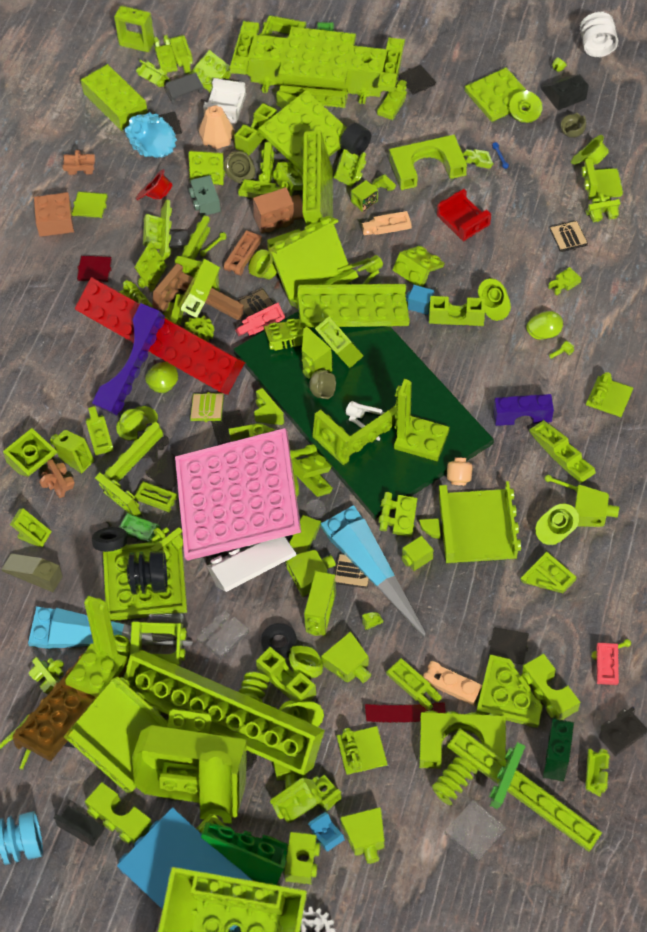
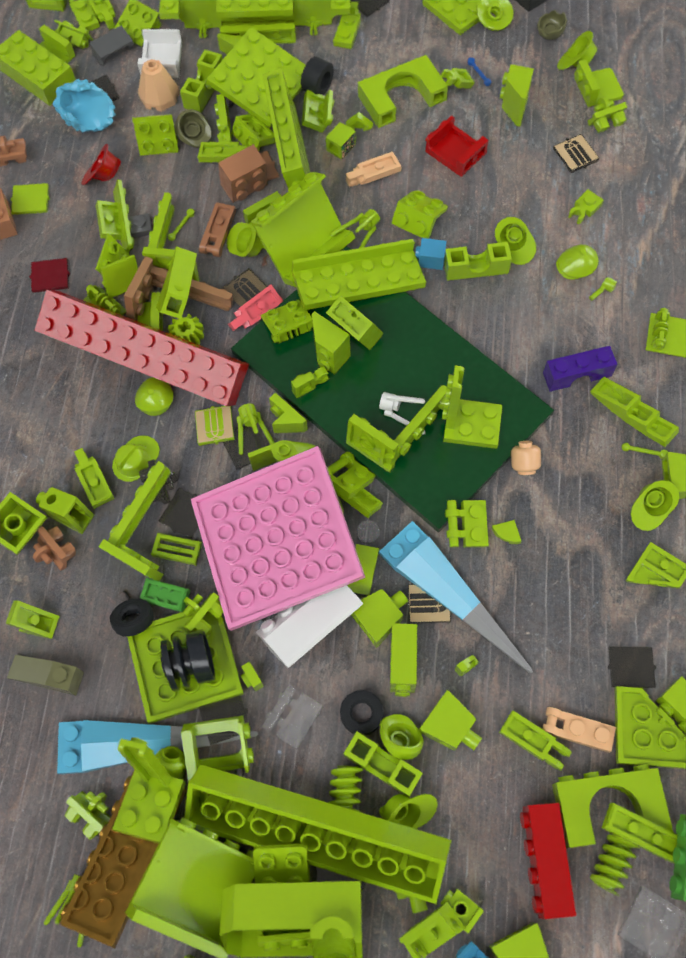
camera: 10 degrees left, 10 degrees up
(112, 394) = (100, 429): dark purple arch -> none
(137, 80) = (56, 44): none -> lime panel
(151, 276) = (118, 275): none -> lime piece
(195, 599) = (250, 677): none -> lime plate
(205, 196) = (160, 168): sand green brick -> none
(236, 404) = (250, 417): none -> lime plant
(290, 383) = (306, 382): none -> lime plate
(322, 384) = (345, 377): olive hair -> none
(361, 750) = (492, 840): lime hinge -> none
(399, 713) = (529, 779): dark red sticker -> none
(401, 768) = (548, 861): none -> red brick
(417, 553) = (500, 570): lime brick -> none
(479, 525) = (562, 519): lime panel -> none
(526, 177) = (516, 91): none -> lime slope

